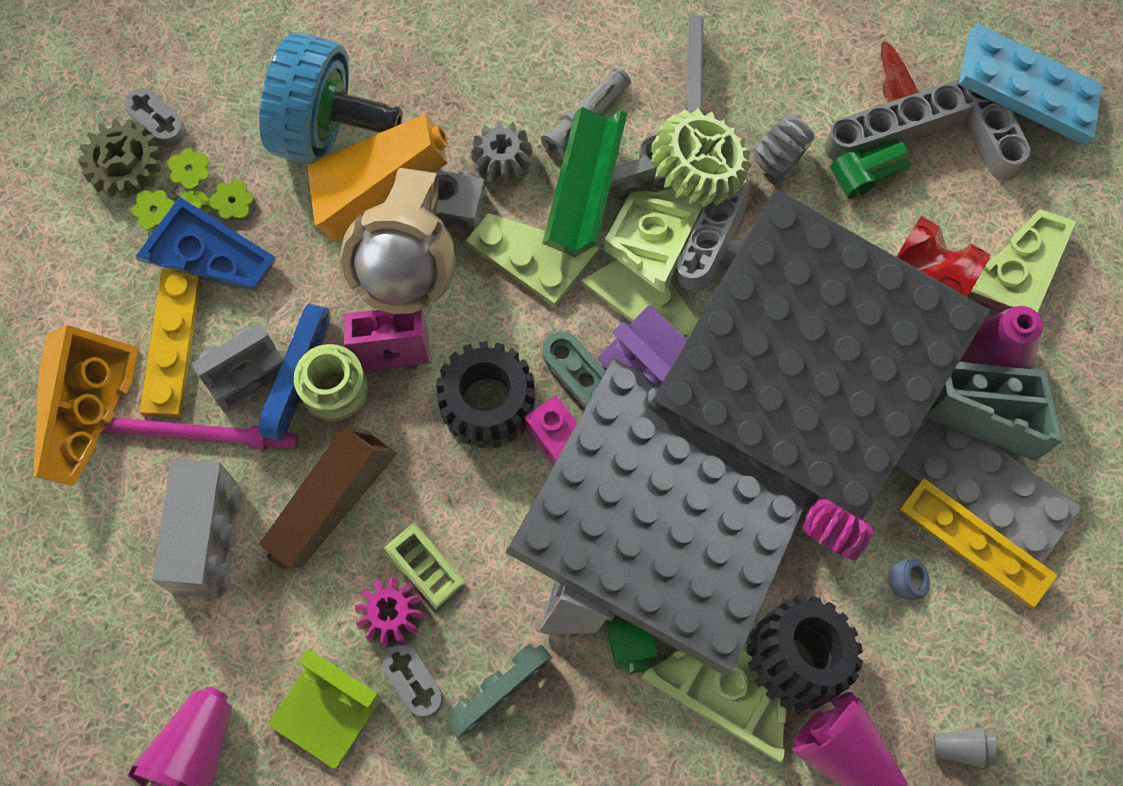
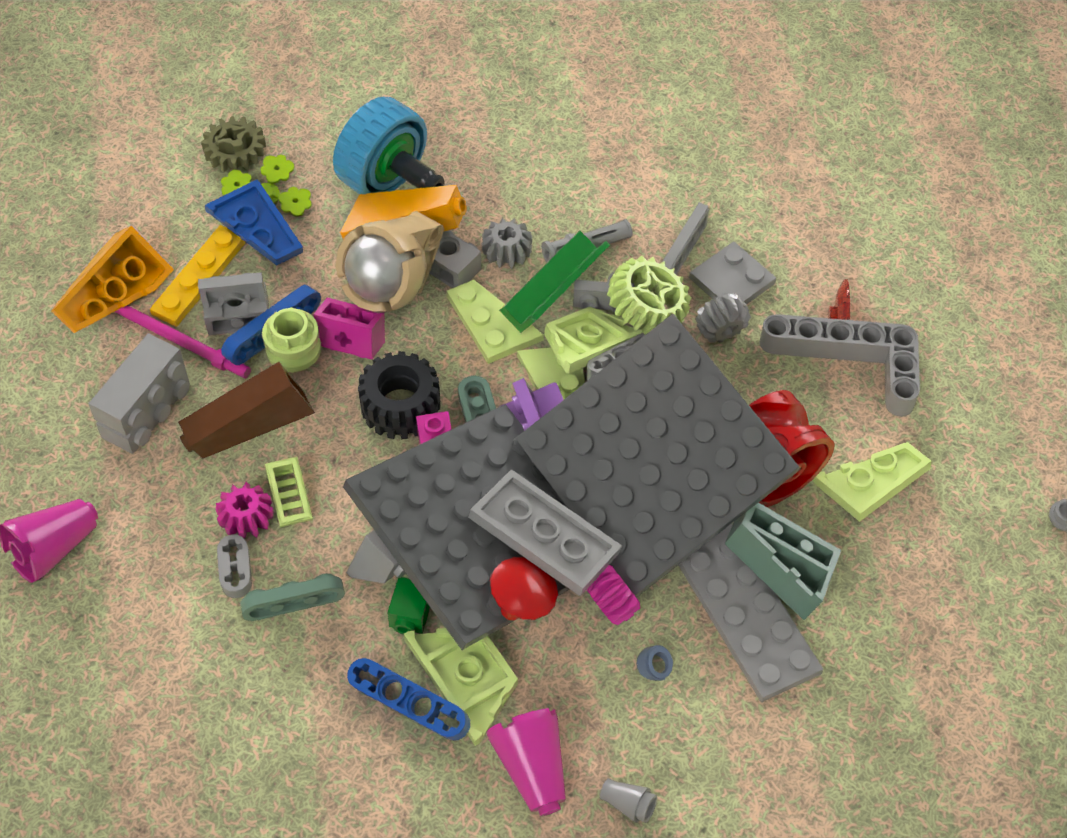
camera: 25 degrees right, 15 degrees down
(160, 112) = (269, 130): light grey beam -> none
(325, 710) = (161, 555): lime bracket -> none
(687, 740) = (406, 701): none -> blue beam
(747, 500) = (545, 532): none -> light grey plate
(757, 576) = (523, 589): none -> red dish
(761, 88) = (732, 272): none -> light grey plate
(826, 638) = (546, 647): black tyre -> none
(862, 171) = (776, 361): green piece -> none
(978, 543) = (722, 658): yellow plate -> none
(1007, 339) = (825, 515): dark pink cone -> none
(1030, 84) = (946, 350): medium azure plate -> none

